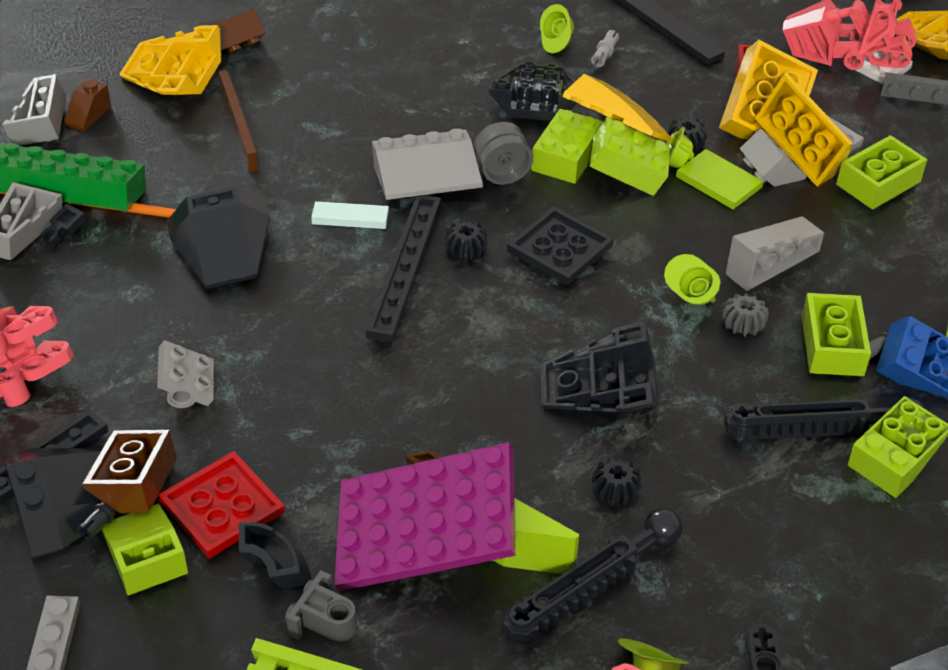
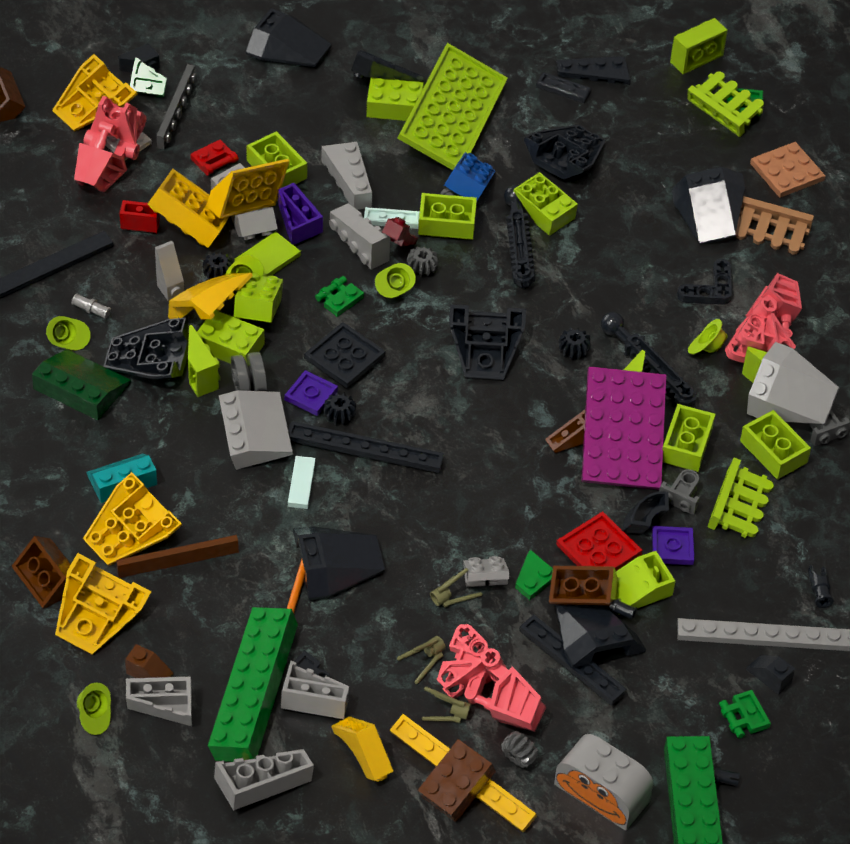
camera: 90 degrees left, 5 degrees up
(38, 64) = (94, 708): none -> lime piece
(73, 327) = (433, 647): none -> olive plant
(154, 335) = (441, 595): none -> olive plant
(187, 432) = (534, 576): none -> green wing
(218, 596) = (673, 544): none -> dark purple plate
(291, 86) = (129, 522): none -> yellow wedge
(354, 78) = (107, 477): none -> teal slope
(426, 616) = (688, 437): none -> lime brick
(489, 44) = (79, 383): none -> dark green slope
(495, 215) = (310, 392): none -> dark purple plate
(525, 108) = (201, 365): none -> lime slope
(655, 82) = (168, 271): none -> light grey slope
(660, 245) = (343, 300): none -> green plate
(771, 276) = (399, 232): none -> dark red slope
(791, 193) = (299, 214): none -> dark purple wedge
(824, 277) = (379, 216): none -> light aqua tile
(877, 126) = (213, 157): none -> red plate
(888, 241) = (348, 170): none -> light grey wedge

